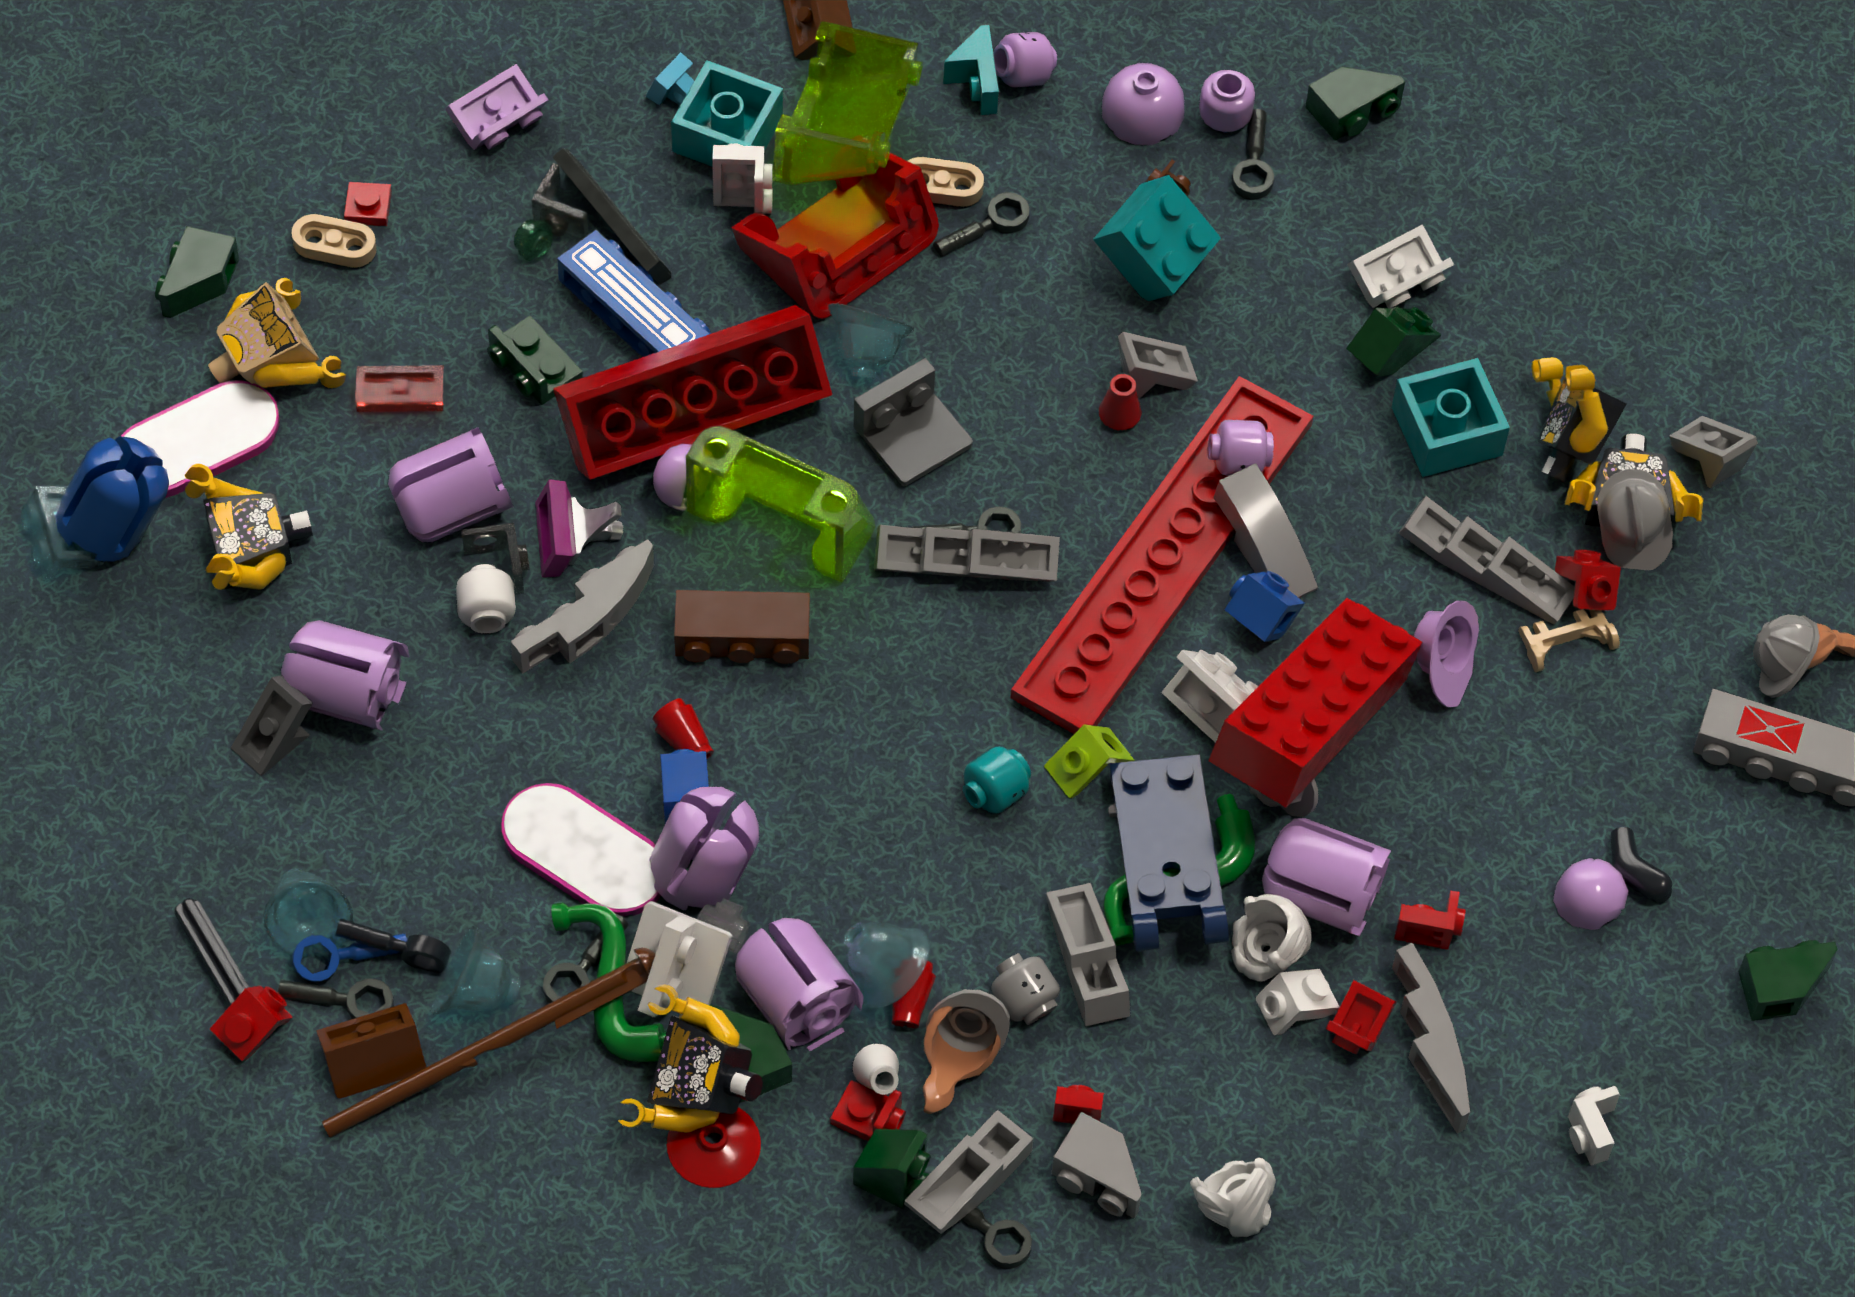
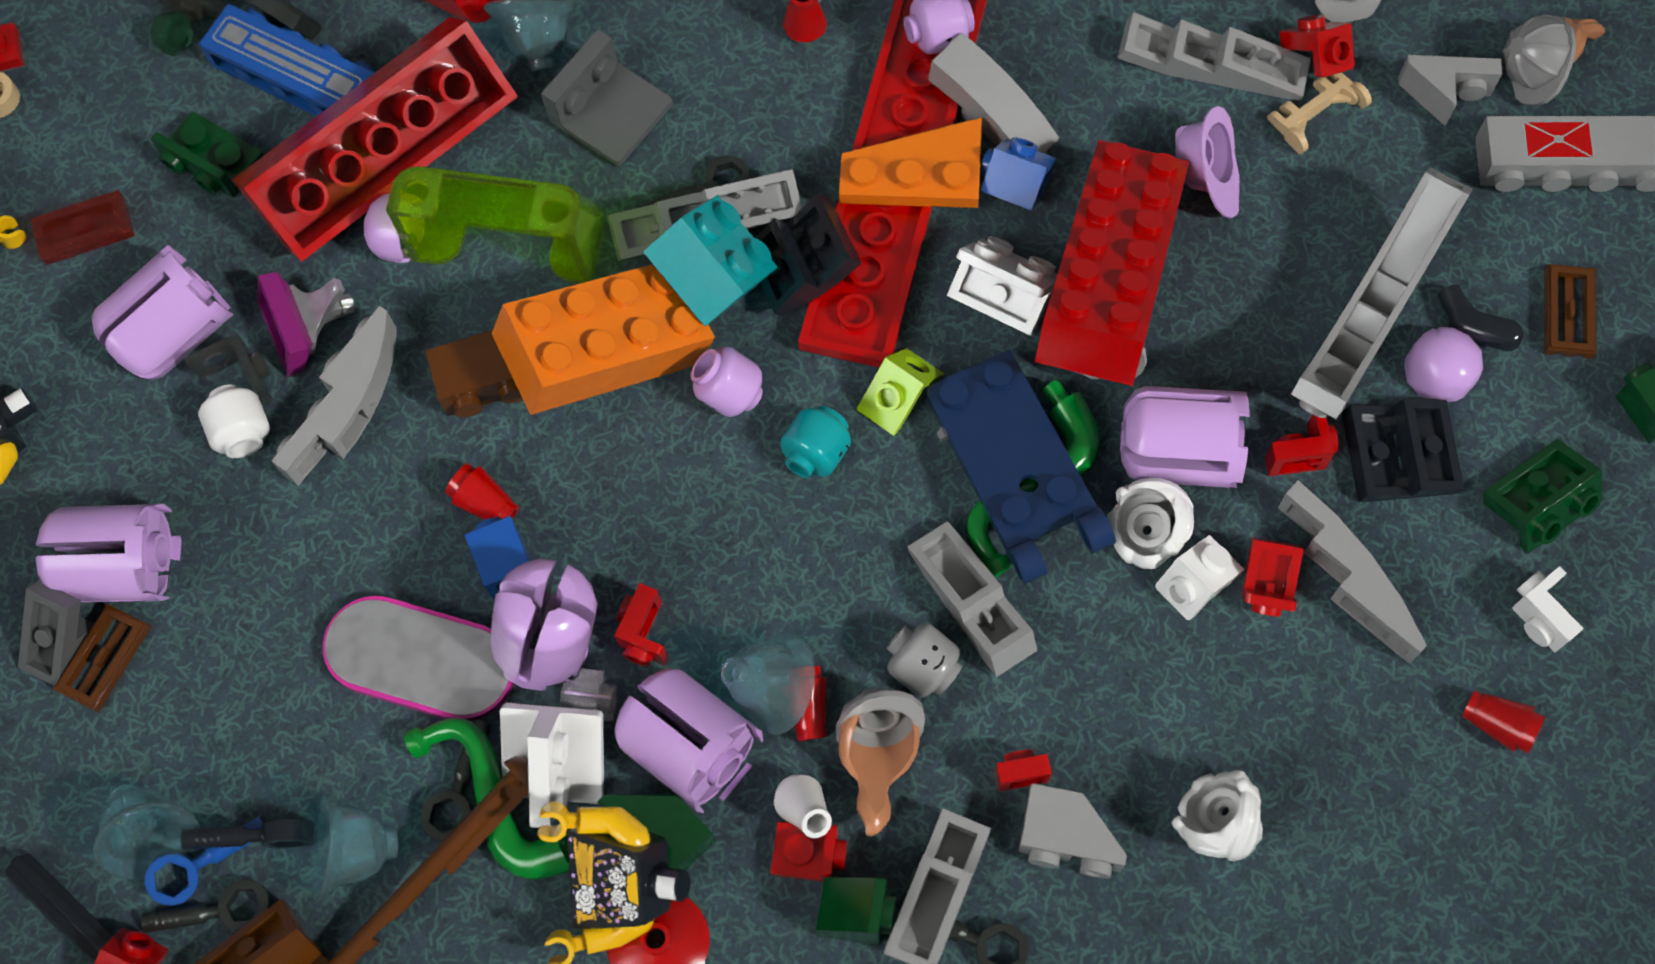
camera: 10 degrees left, 10 degrees up
(292, 795) = (117, 666): none -> reddish brown tile
(783, 878) = (635, 620): none -> red bracket
(838, 625) = (597, 337): none -> orange brick
(935, 702) = (727, 381): none -> lavender head
(958, 590) = (711, 259): none -> teal brick
(1041, 617) = (809, 253): none -> black slope
(1173, 573) = (916, 170): none -> orange wing
(1520, 1202) = (1504, 720): none -> red cone
(1531, 830) = (1381, 295): none -> light grey arch
(1544, 958) = (1424, 448): none -> black slope
(1635, 1031) = (1546, 494): none -> dark green bracket
(1687, 642) = (1438, 80): none -> light grey slope
(1713, 915) = (1568, 346): none -> reddish brown tile

